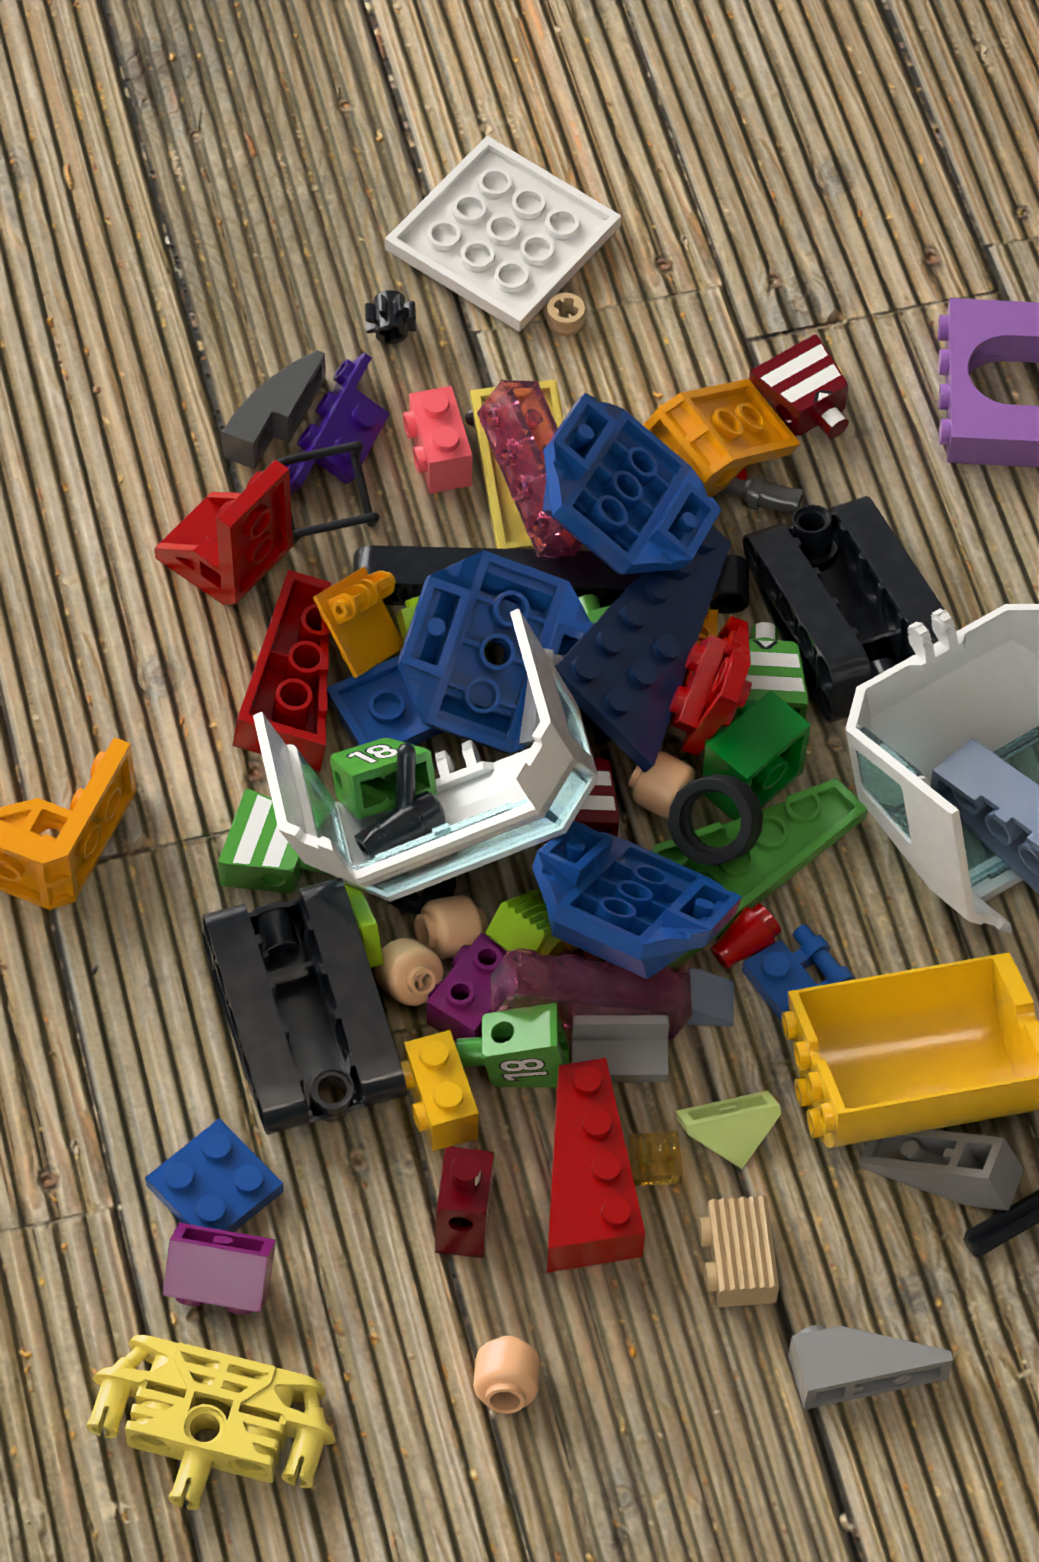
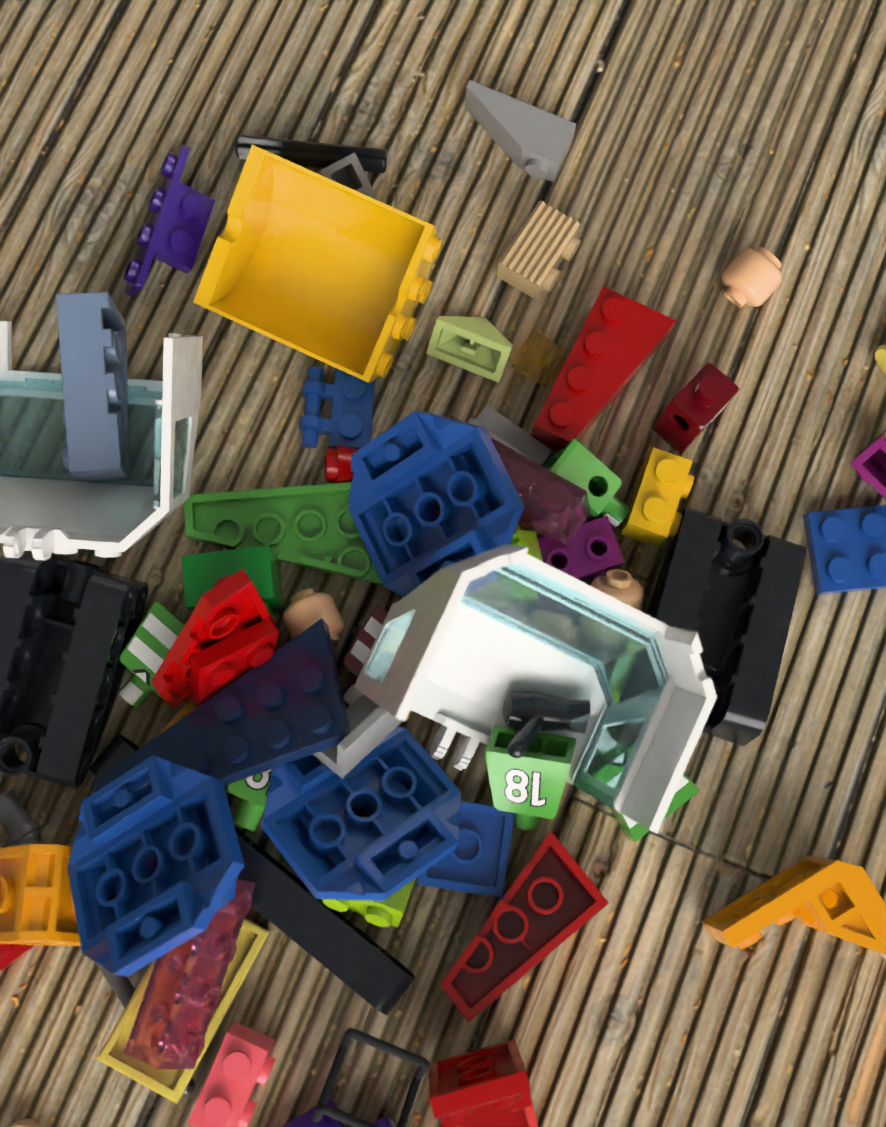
camera: 145 degrees left, 20 degrees up
(360, 618) = (438, 935): light orange hinge -> none
(682, 829) = (291, 554): black tyre -> none

